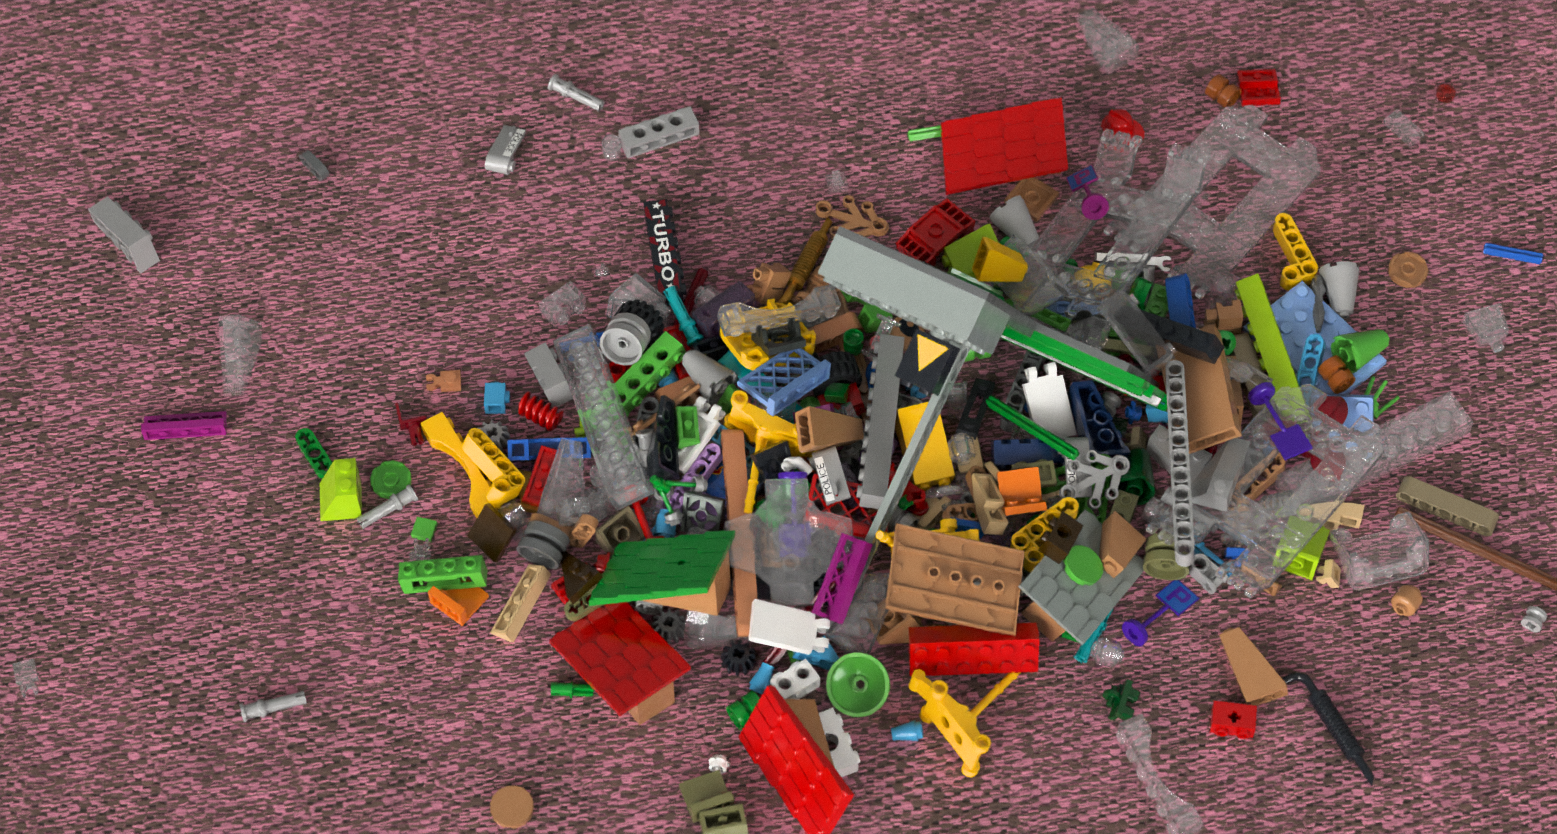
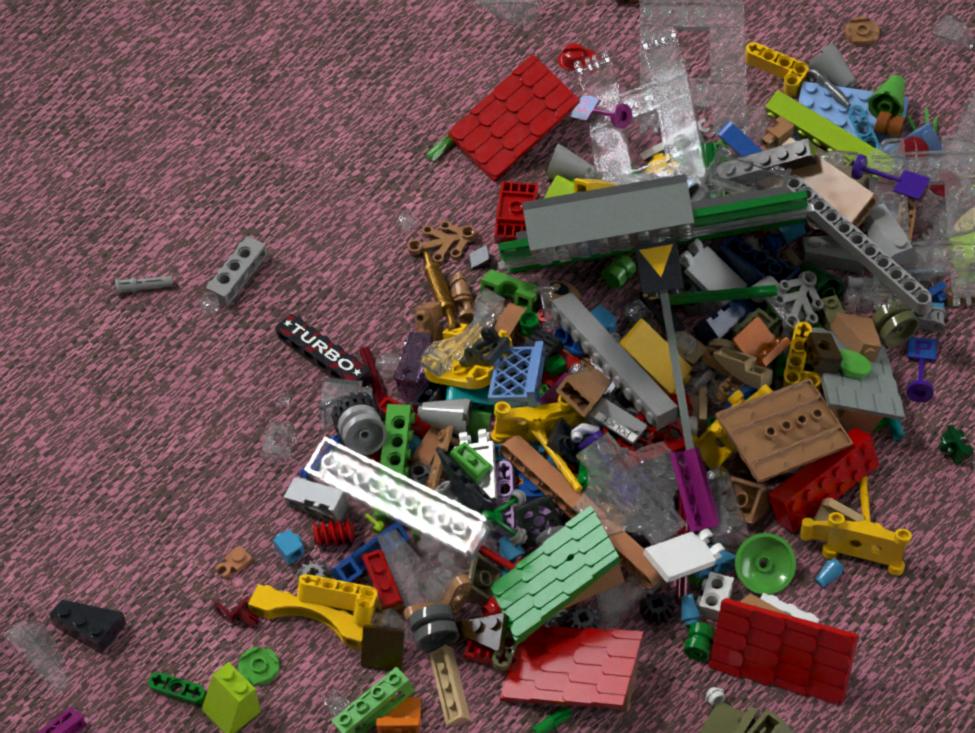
camera: 35 degrees left, 5 degrees down
(292, 354) = (88, 624): none -> black wedge
(395, 502) = (280, 679): light grey pin -> none
(424, 529) = (321, 684): bright green tile -> none
(503, 149) = (124, 360): light grey door -> none
(686, 323) = (394, 391): teal pin -> none
(957, 686) = (830, 505): none -> tan panel
(1036, 195) = (564, 137): medium nougat tile -> none
(1107, 652) = (915, 418): clear head -> none

